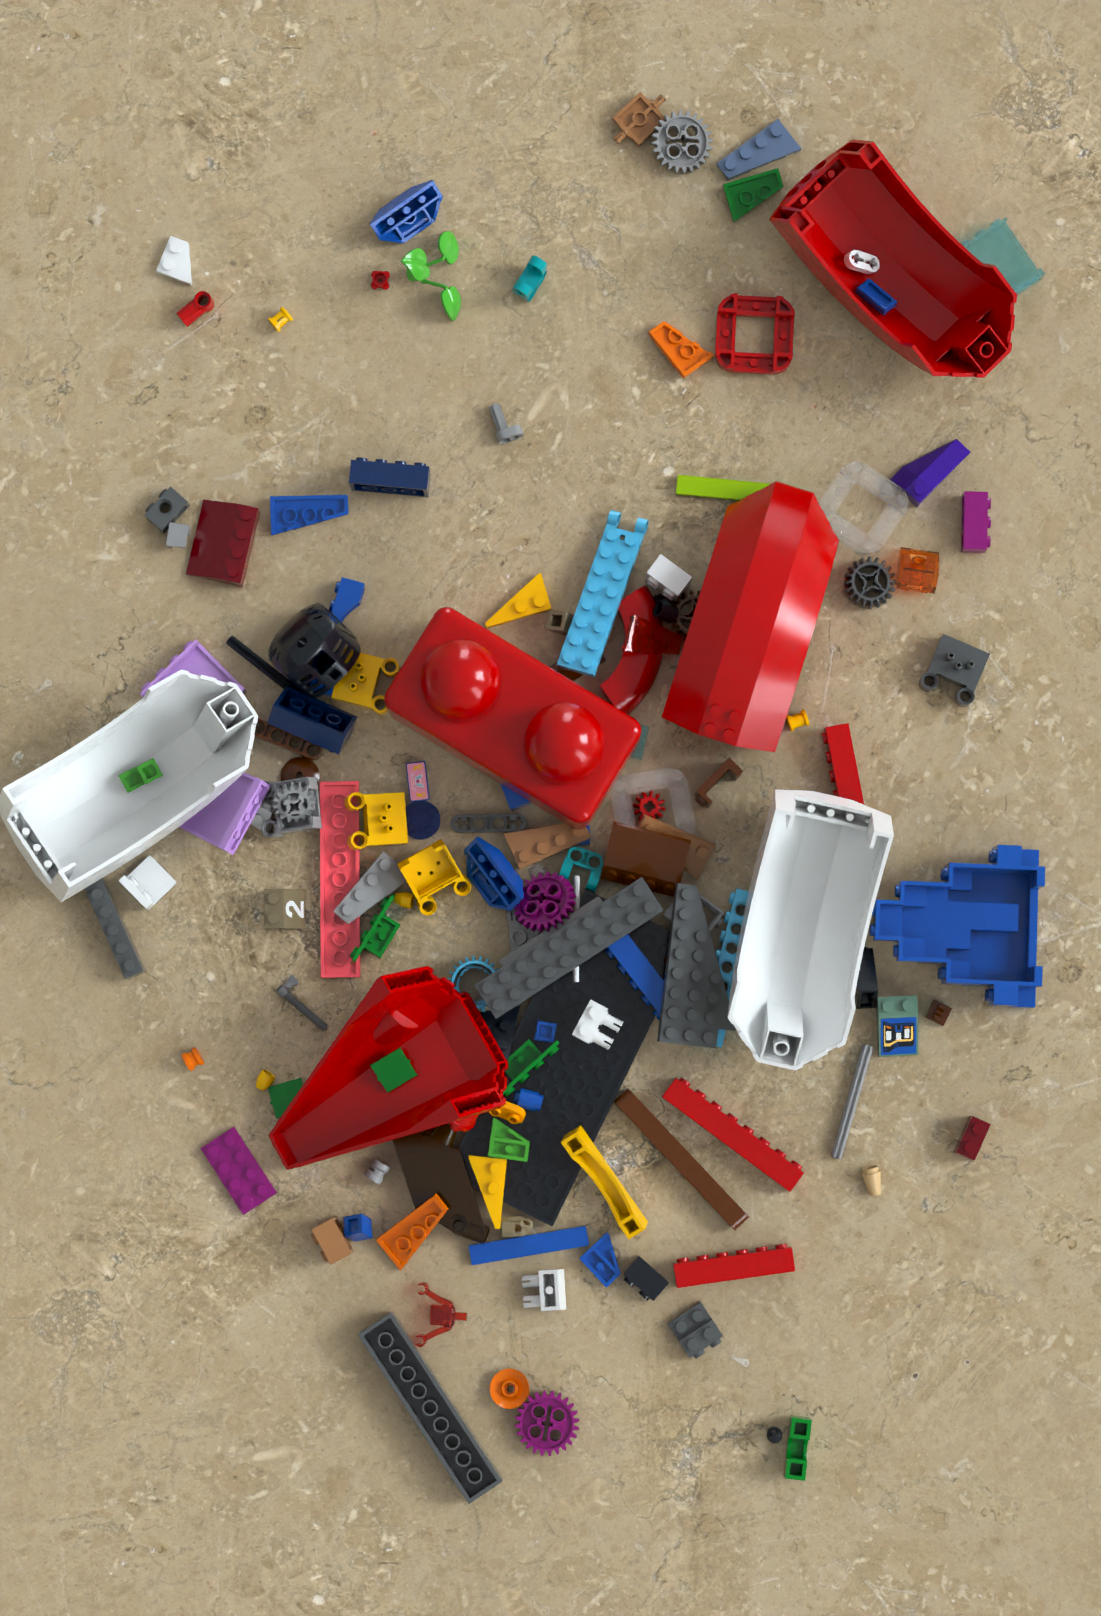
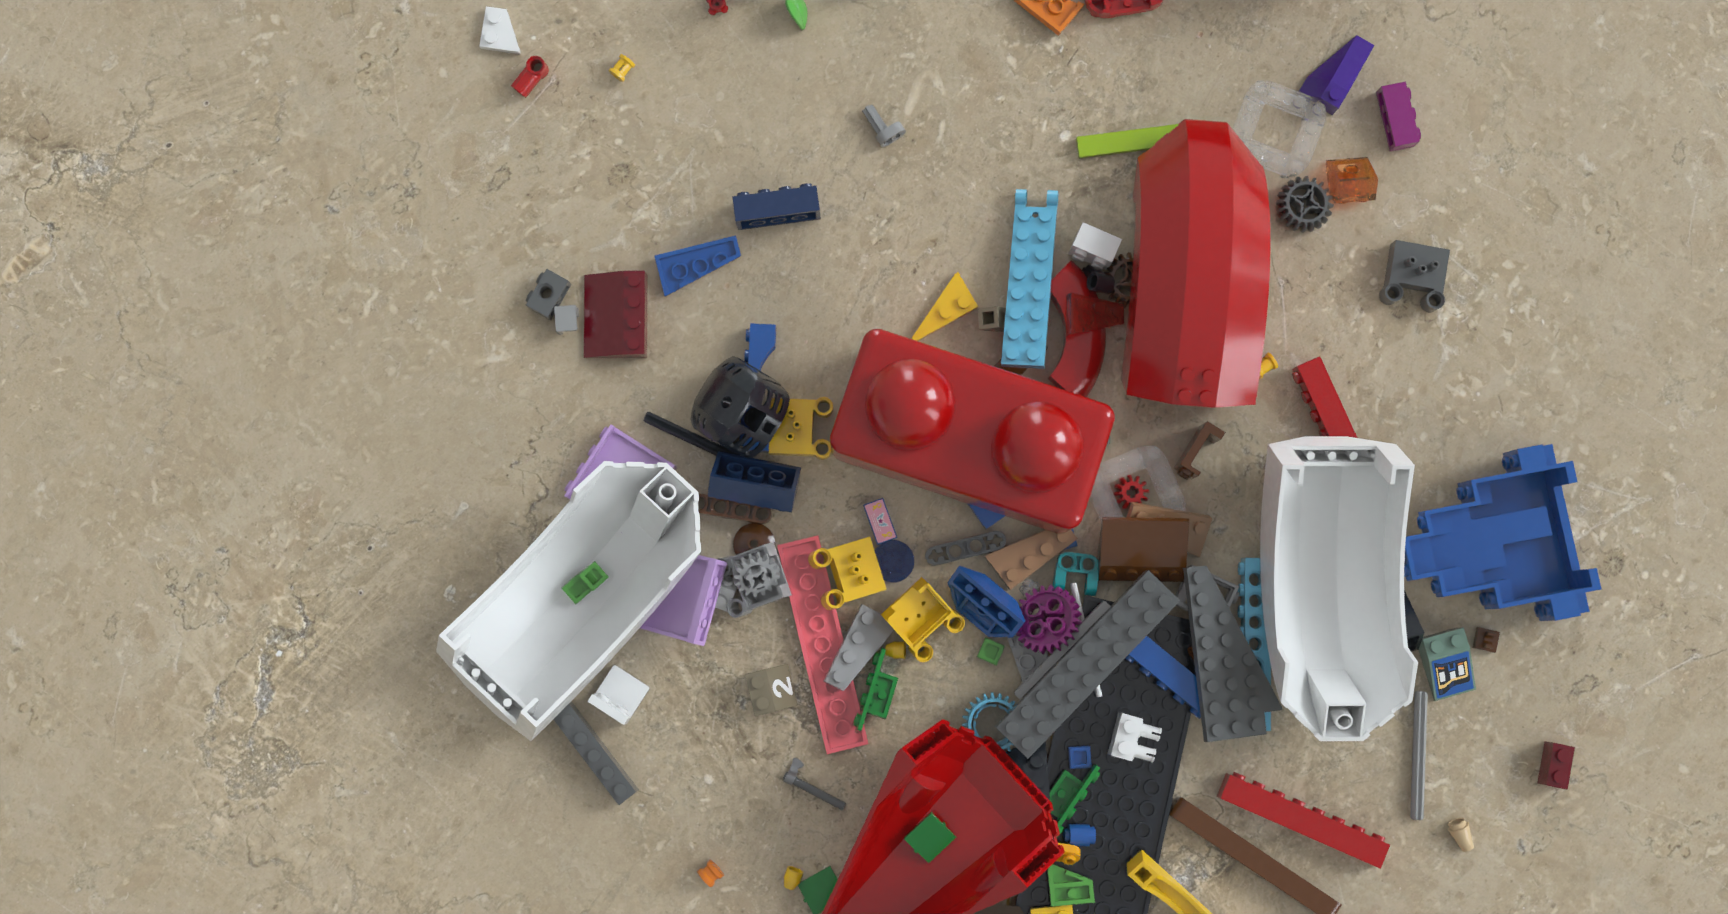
camera: 15 degrees left, 0 degrees up
(489, 920) = (990, 651): none -> bright green tile

